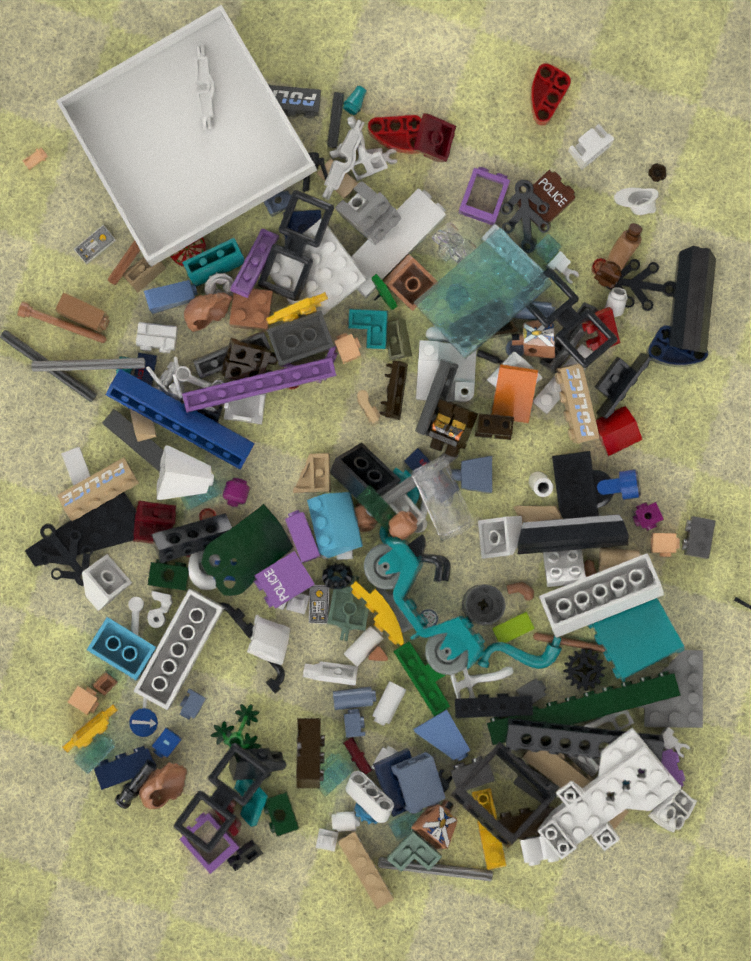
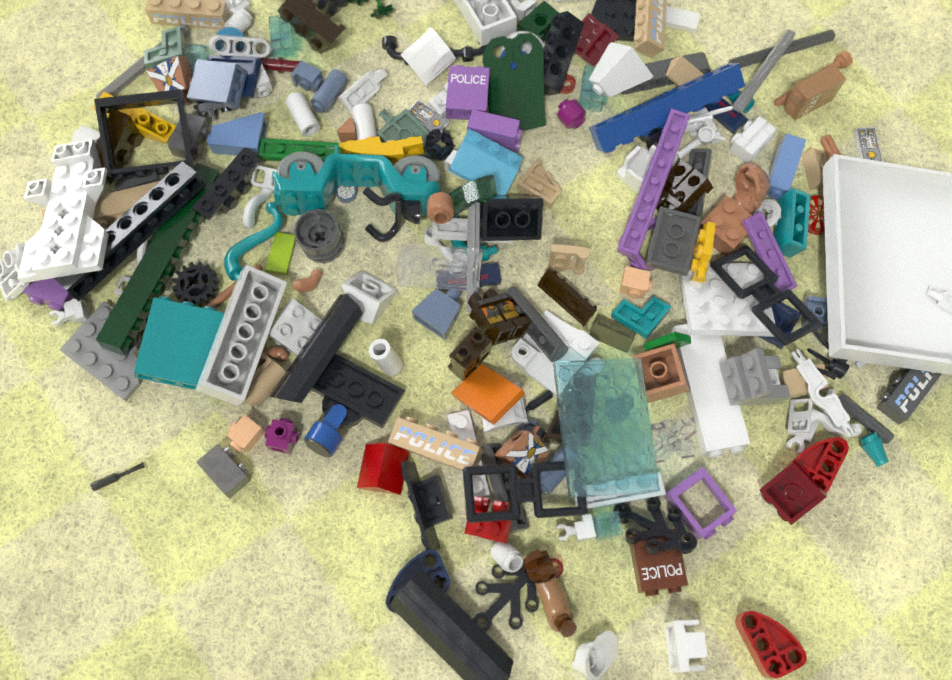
camera: 125 degrees right, 15 degrees down
(533, 688) = (216, 229): dark grey brick -> none
(537, 513) = (359, 340): tan wing -> none

